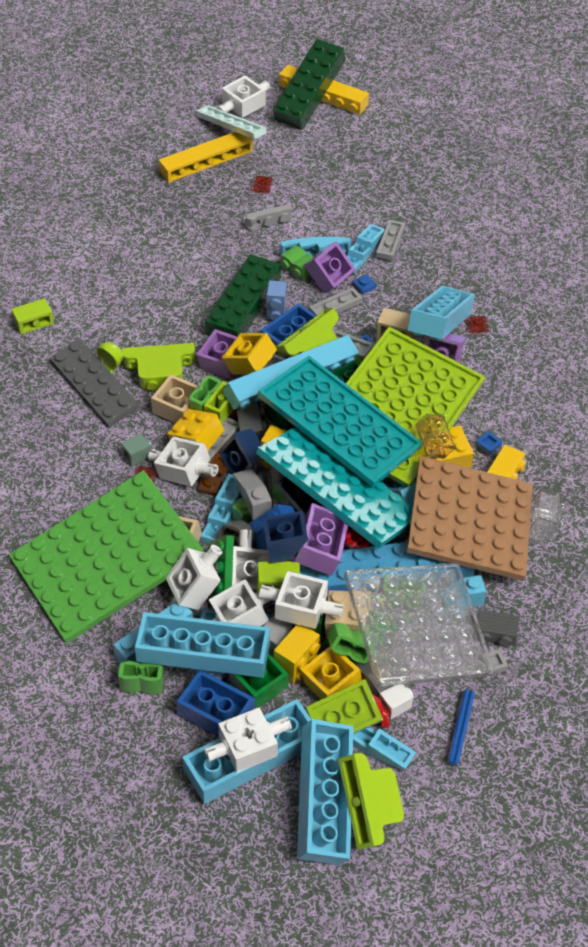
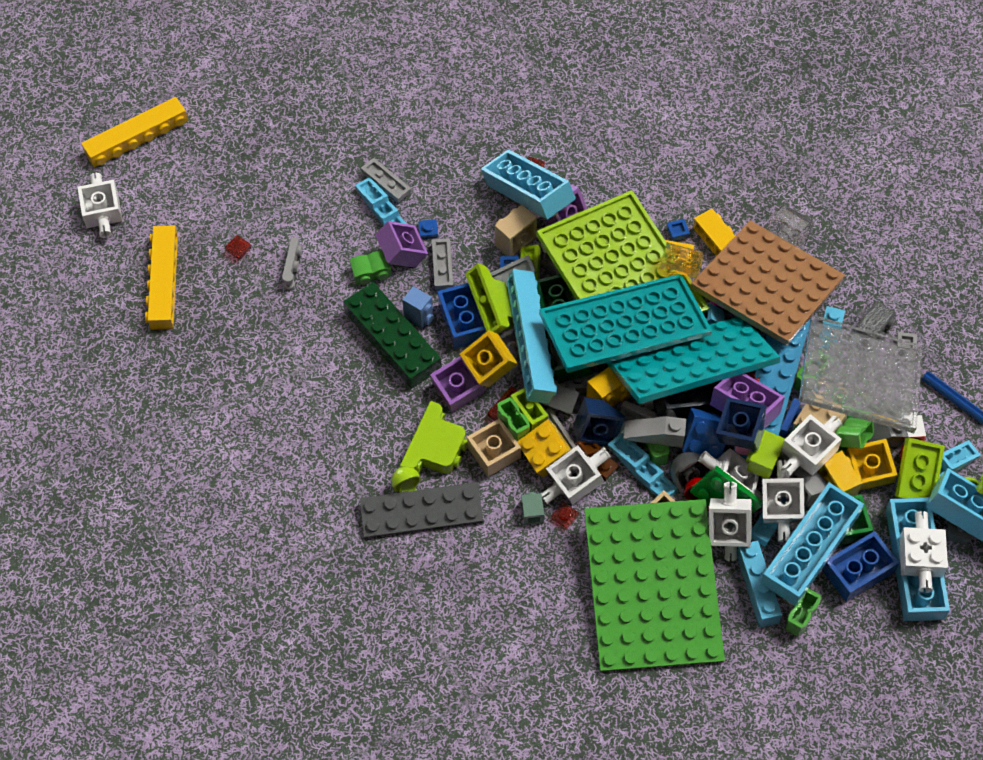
camera: 60 degrees left, 10 degrees up
(32, 316) = (297, 529): lime brick -> none
(231, 122) = (137, 231): light aqua plate -> none
(309, 84) = (133, 138): dark green brick -> none
(315, 244) = (359, 241): medium azure slope -> none

